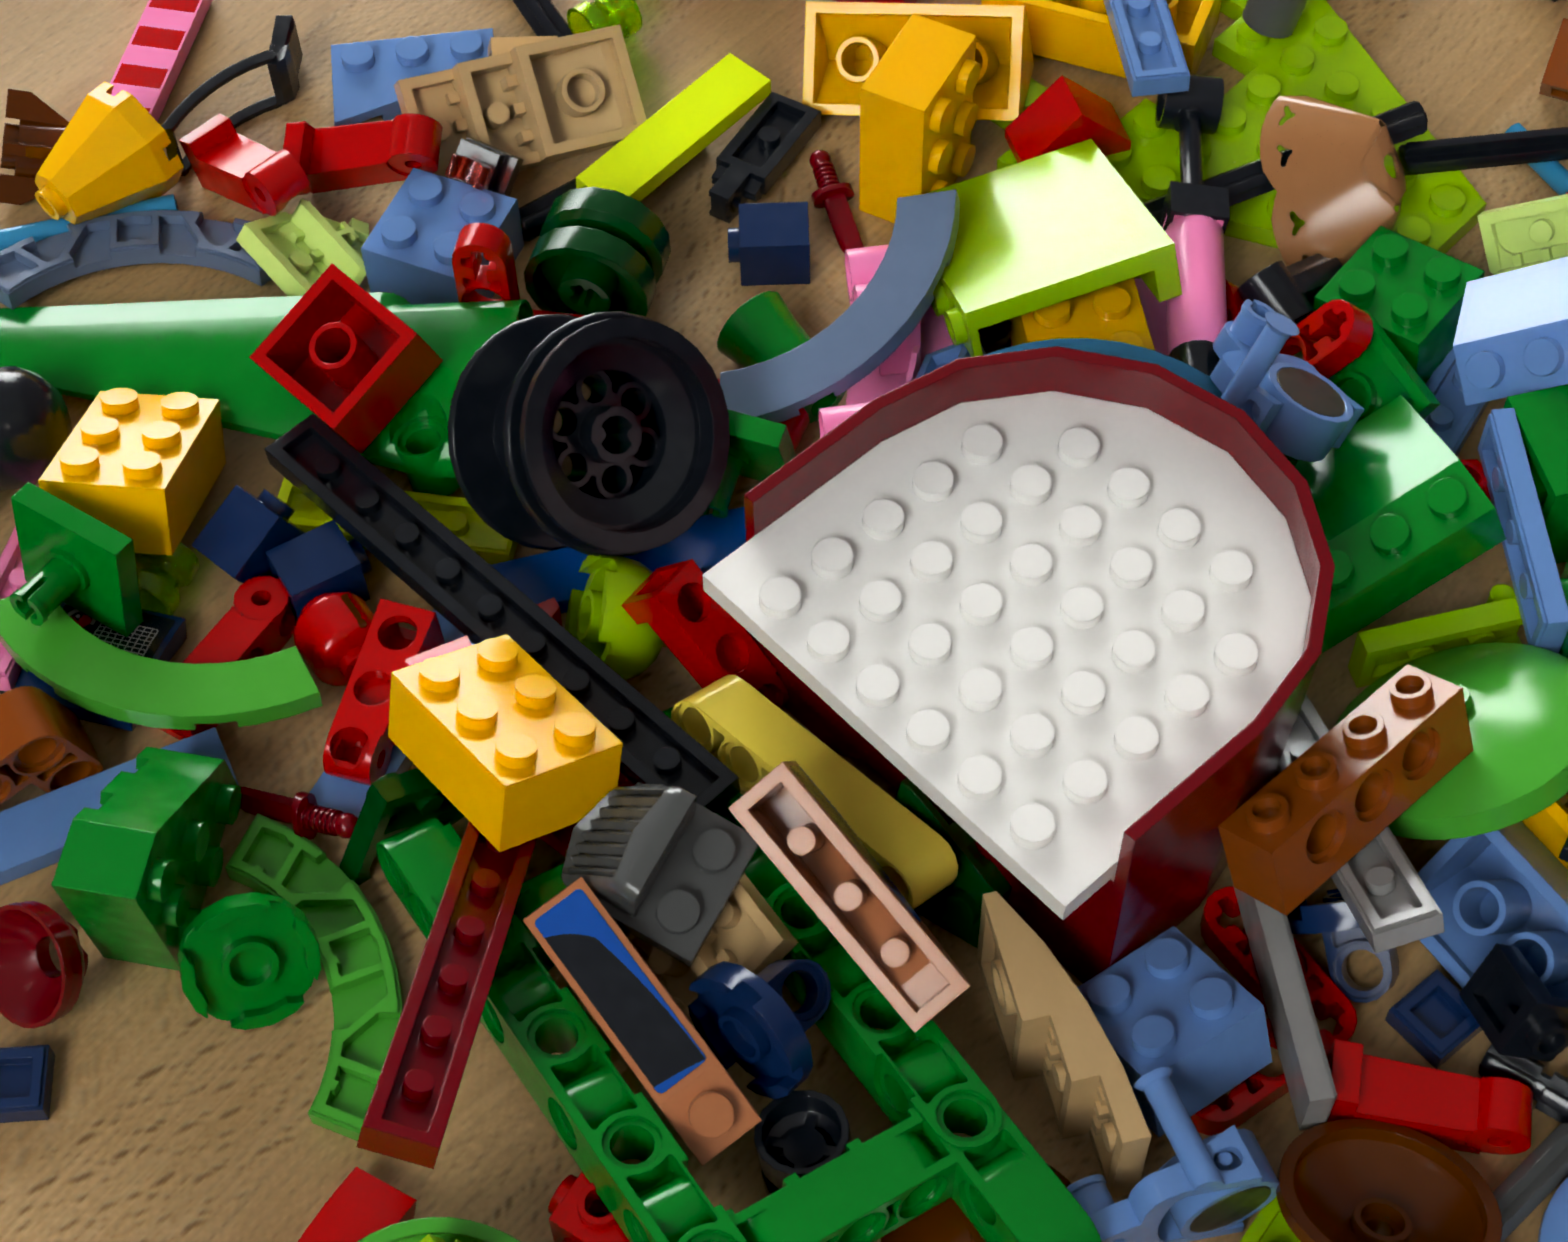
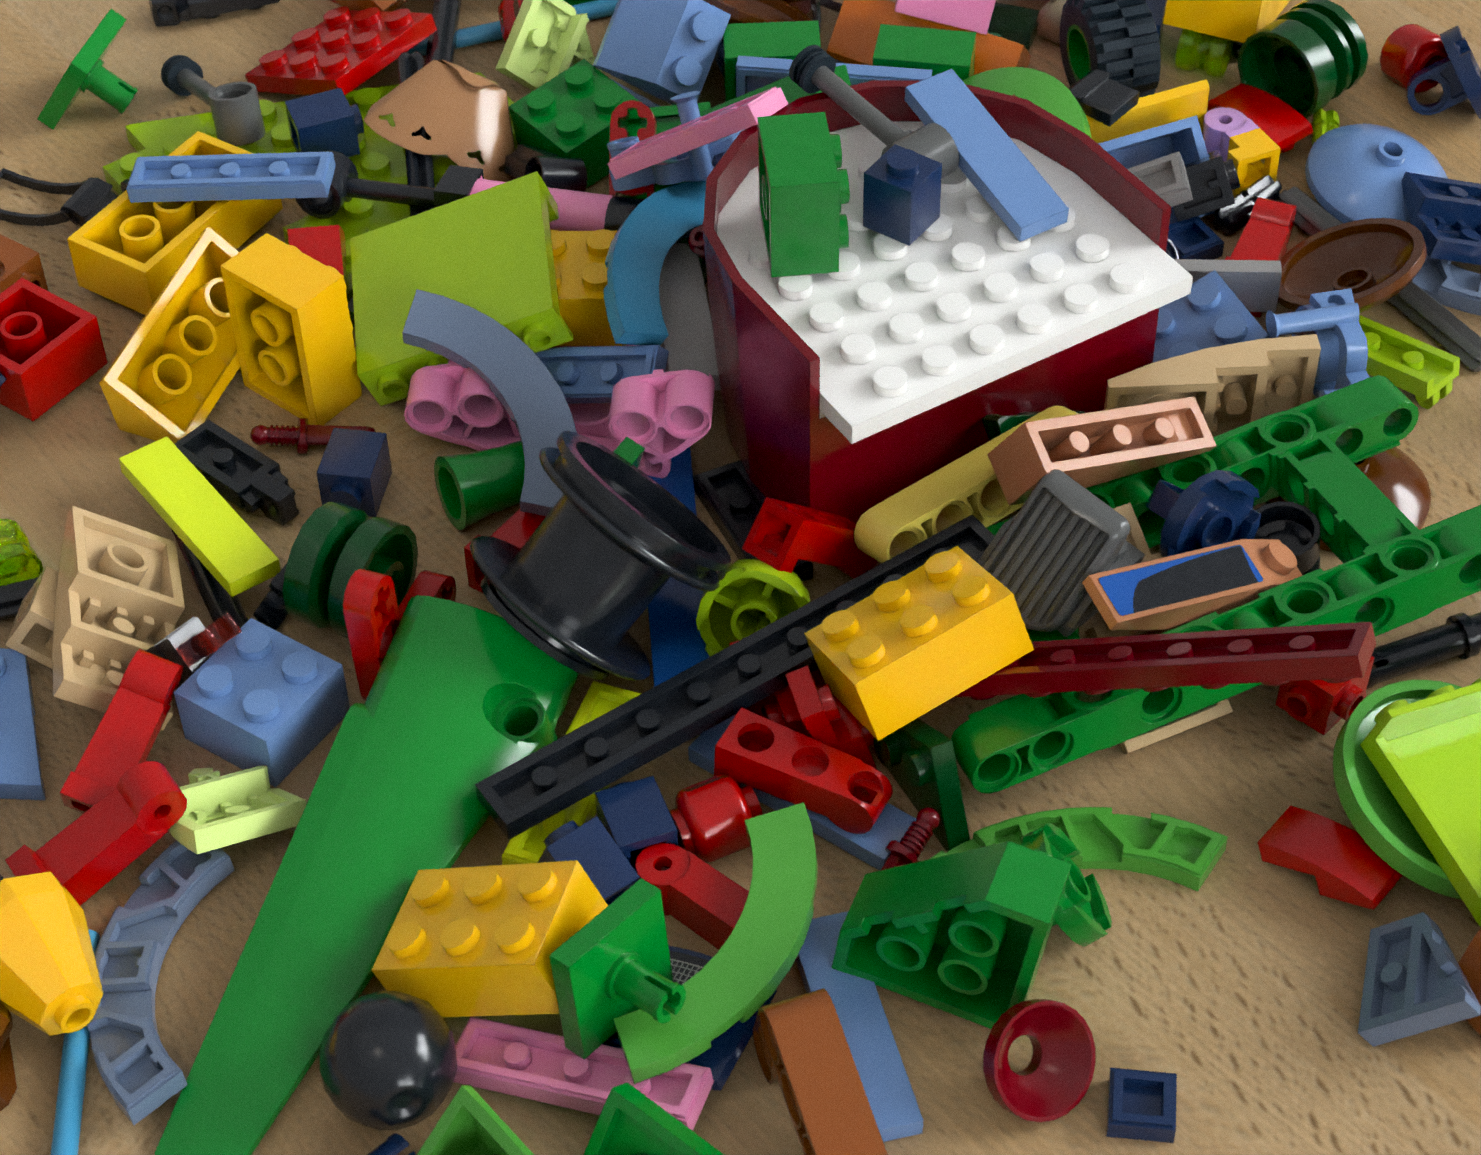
camera: 80 degrees left, 10 degrees down
(346, 358) = (452, 717): red brick -> none
(1016, 425) = (801, 194): none -> green brick
(1076, 541) = (902, 194): none -> dark blue brick
(1165, 548) = (815, 70): none -> dark grey piece
(1193, 623) = (988, 156): none -> medium blue tile
(1210, 349) = (697, 132): none -> bright pink tile
(1285, 67) = (324, 123): none -> dark blue brick
(1451, 66) = (340, 51): none -> red plate

